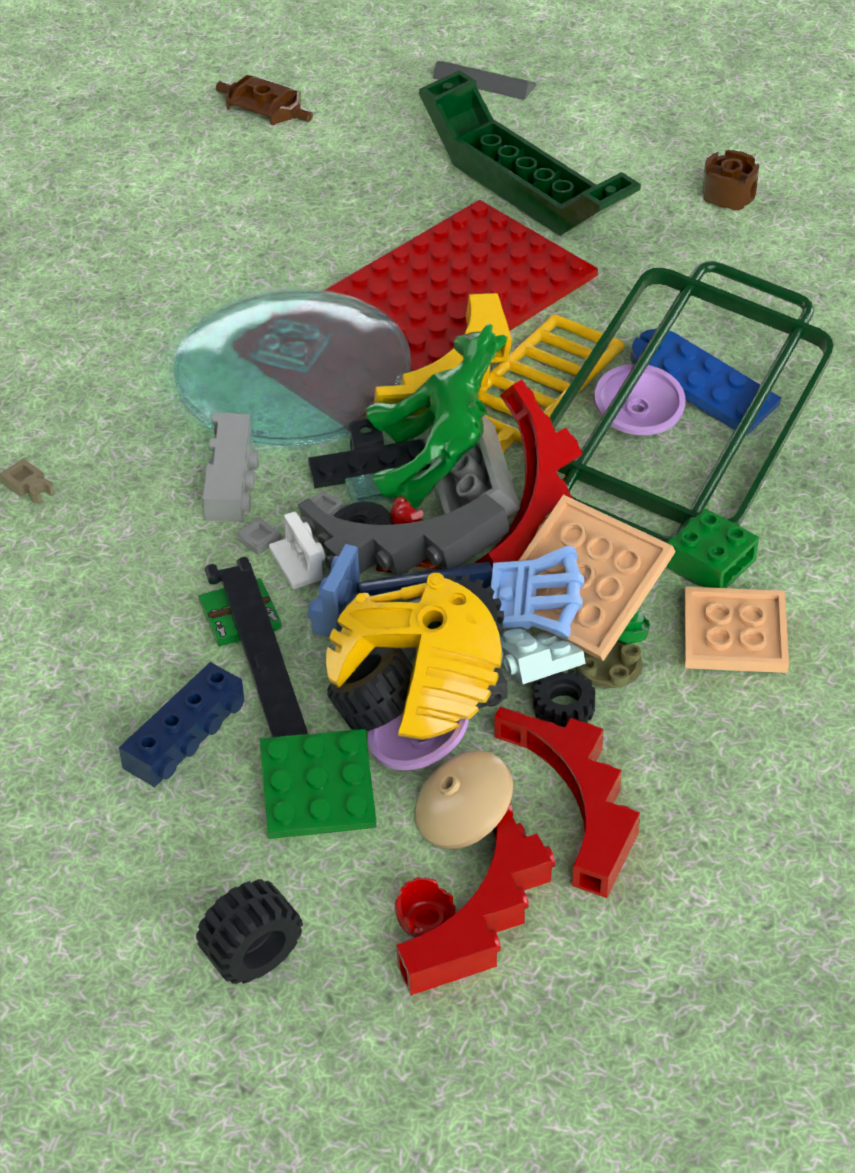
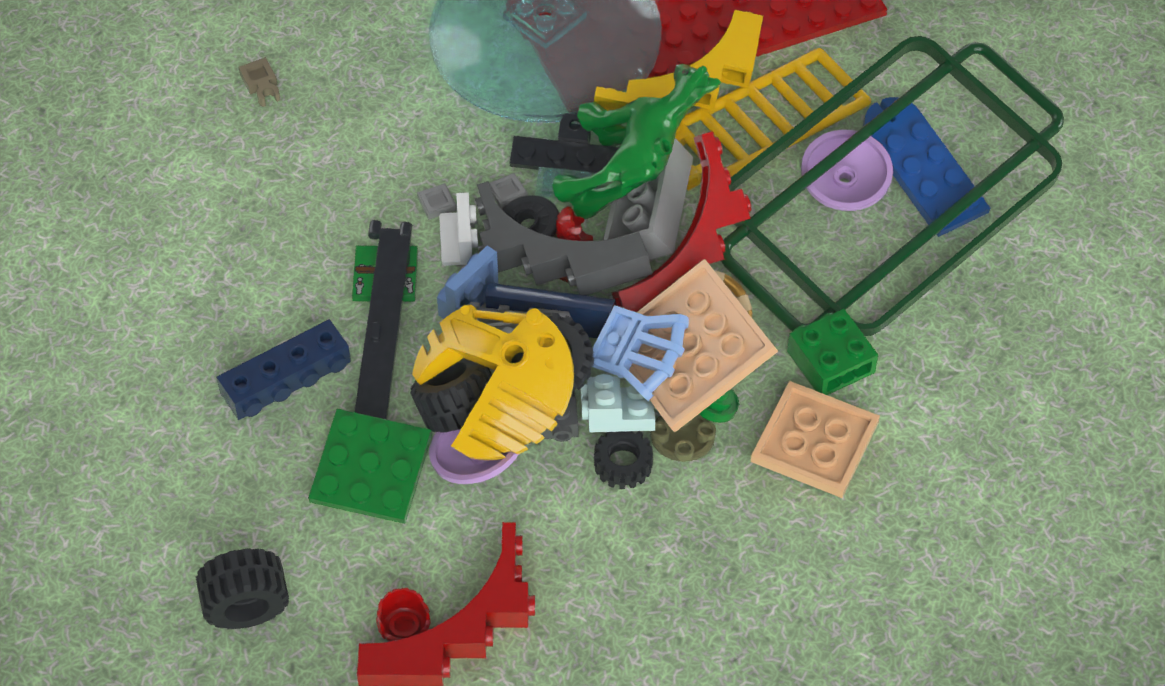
camera: 20 degrees right, 10 degrees up
(230, 469) = (439, 127): light grey wedge -> none
(463, 799) = (483, 526): tan dish -> none
(595, 786) = (596, 597): red arch -> none

